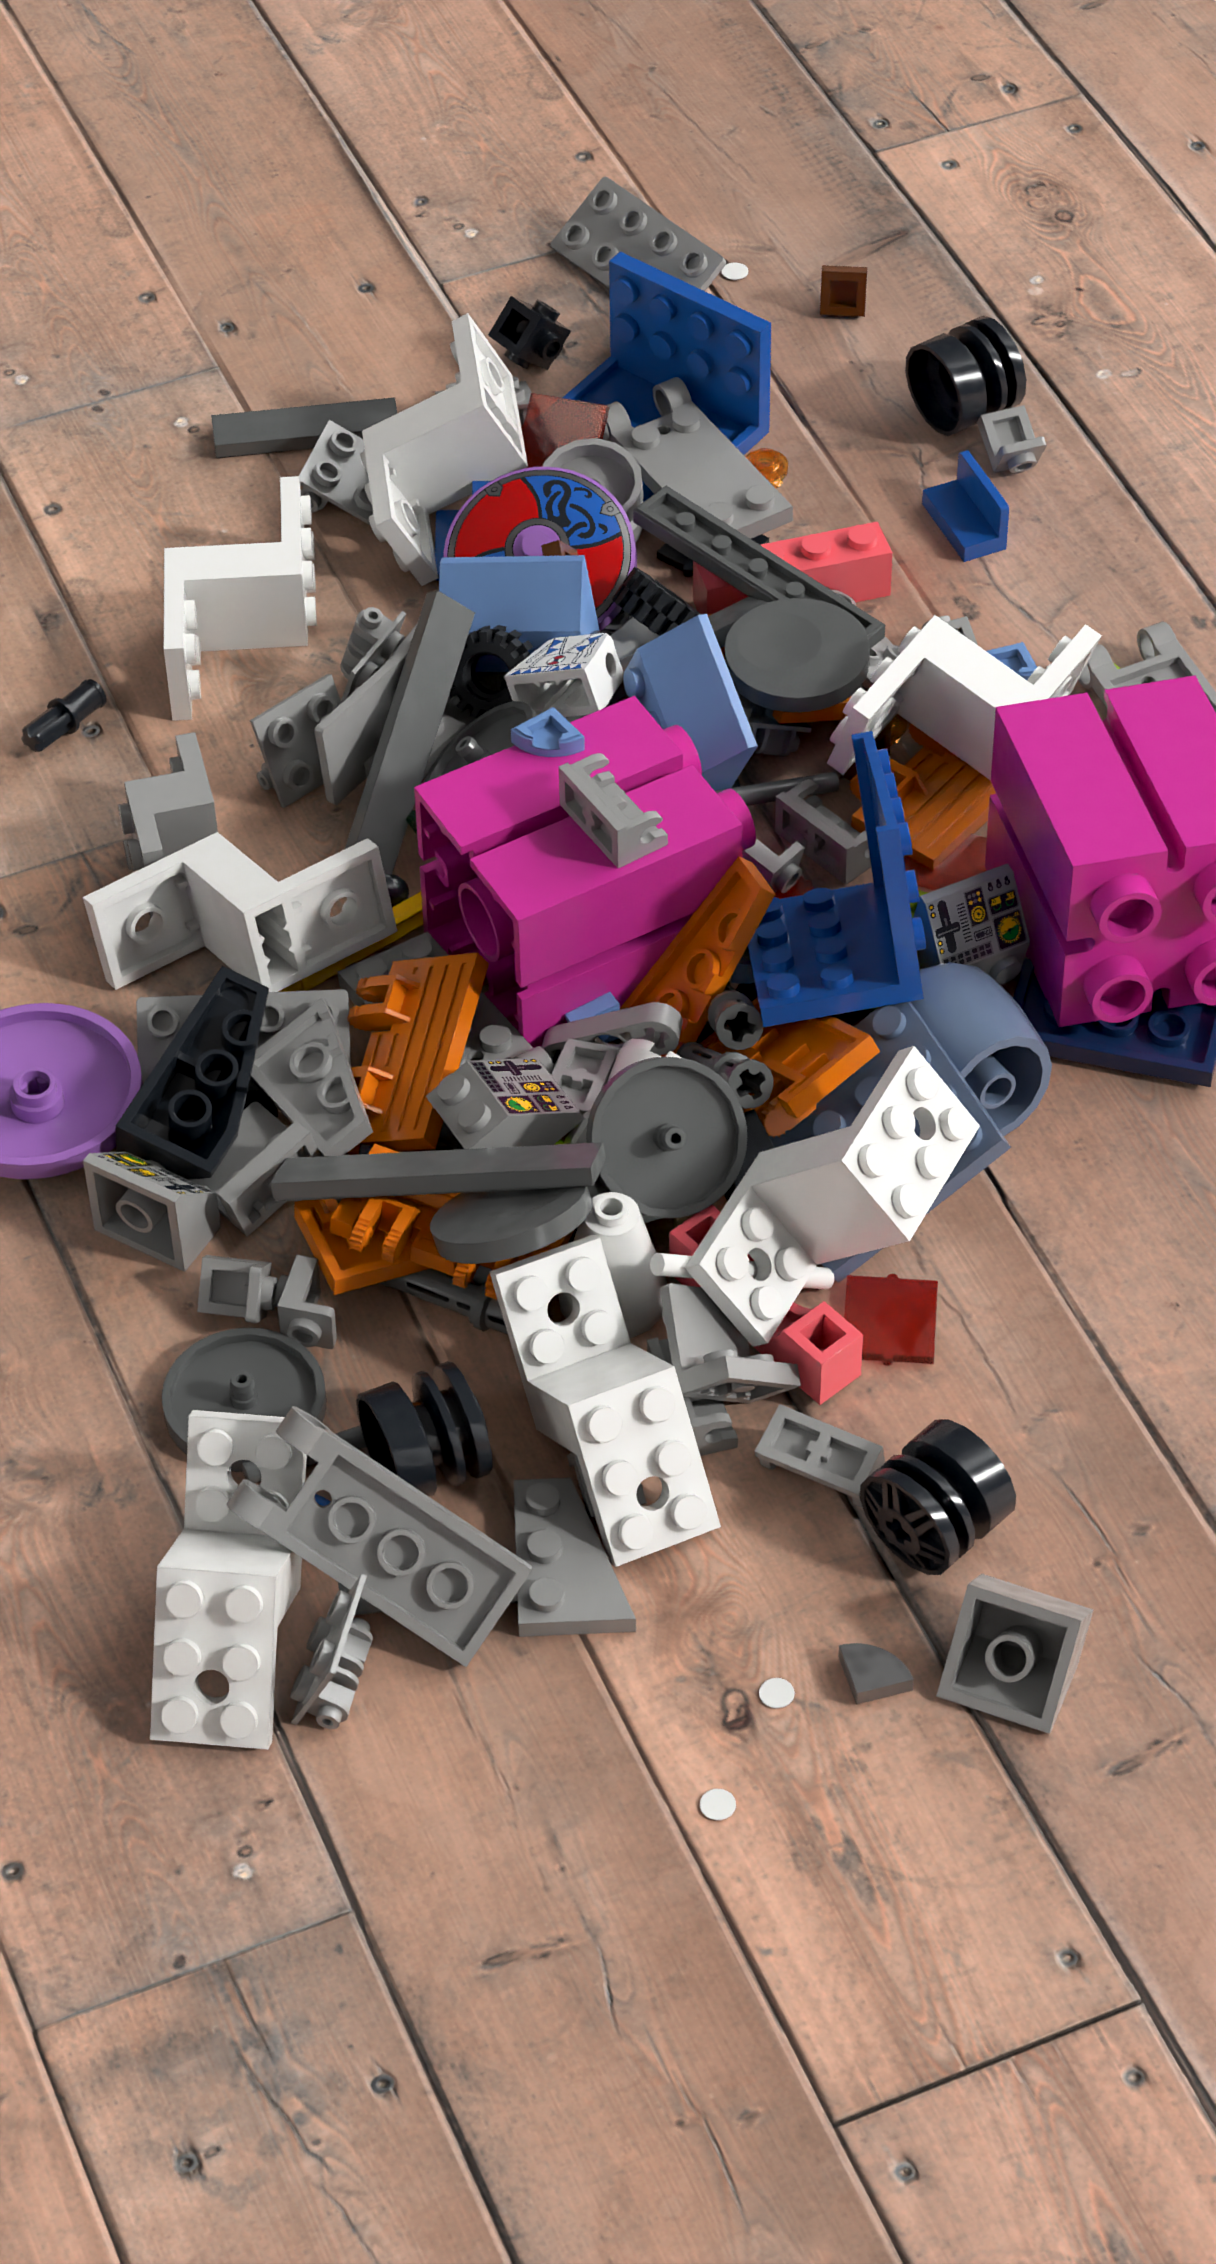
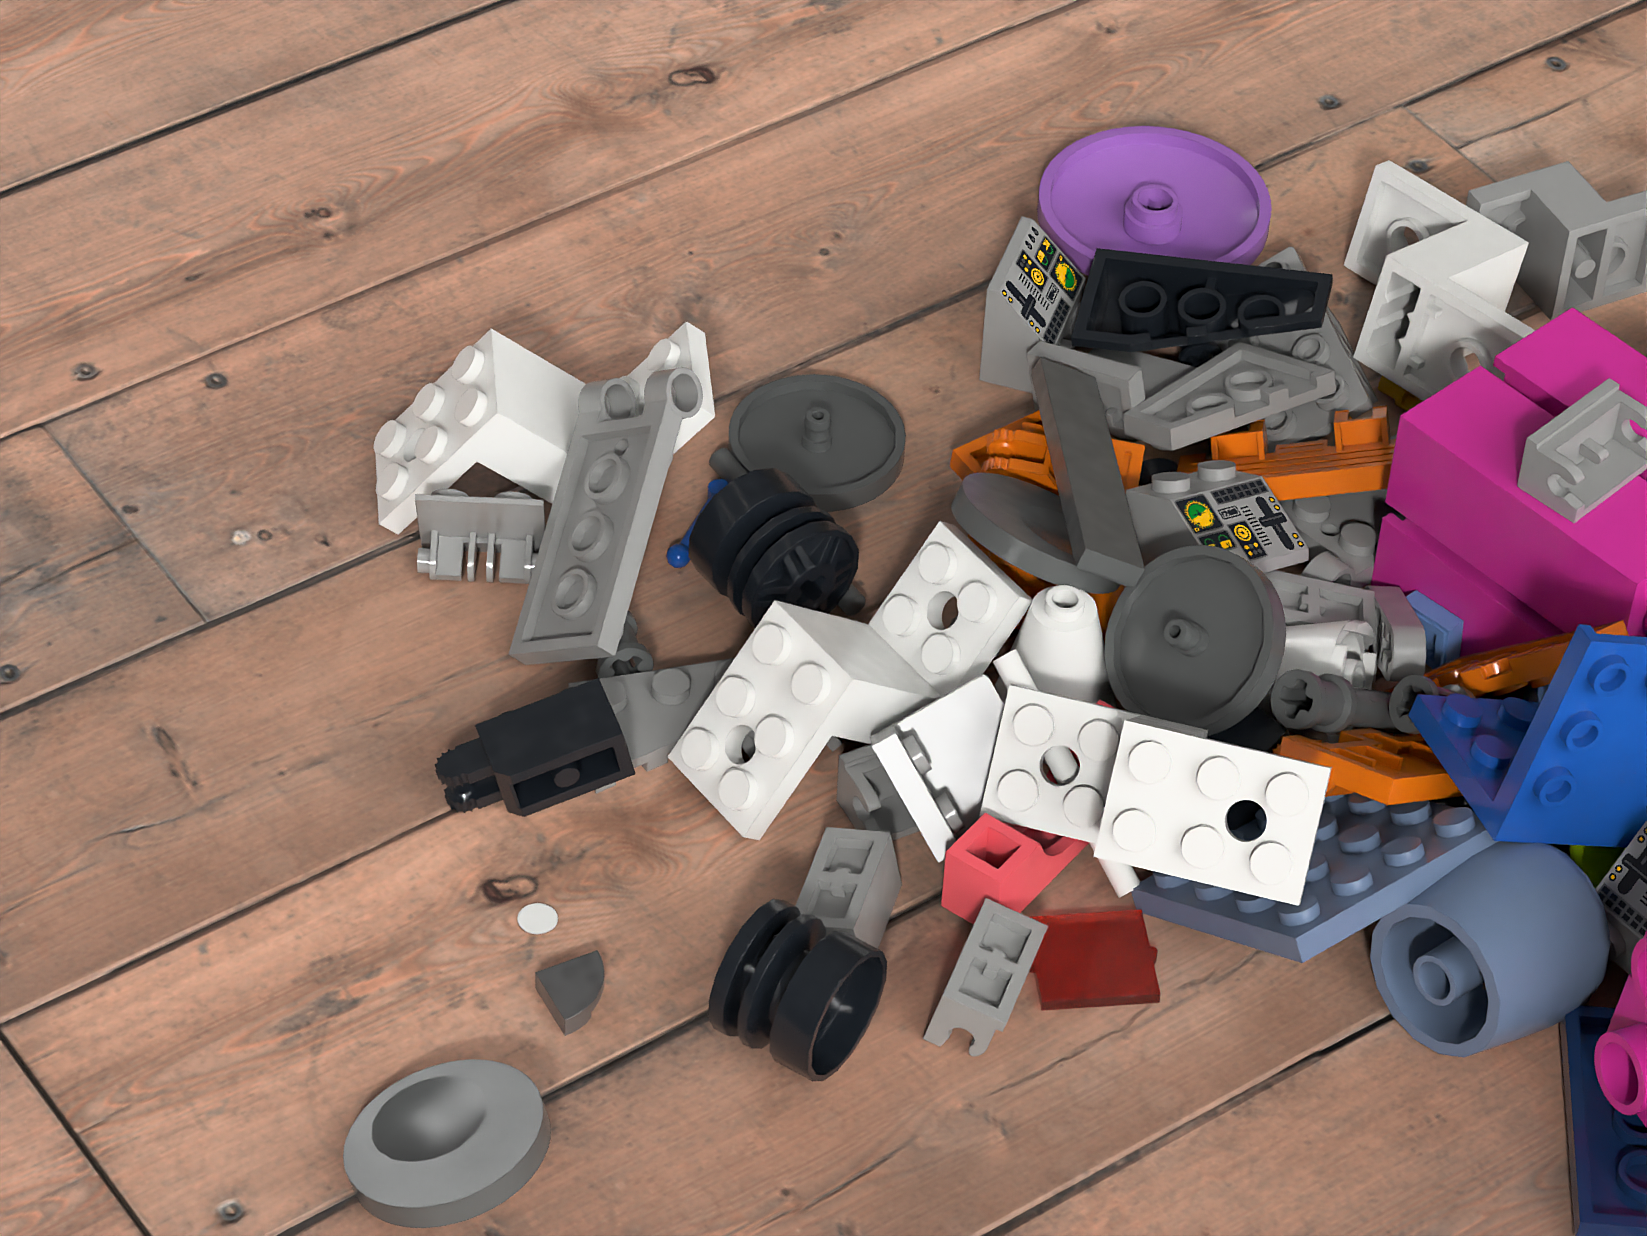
camera: 75 degrees right, 5 degrees down
(236, 1288) = (946, 404): light grey bracket -> none
(298, 1308) = (932, 451): light grey bracket -> none
(619, 1643) = (539, 754): none -> black hinge
(717, 1804) = (382, 886): white sticker -> none
(918, 1380) = (987, 976): none -> light grey hinge
(1014, 1652) = (625, 1101): light grey slope -> none
(1047, 1774) = (447, 1143): none -> piece

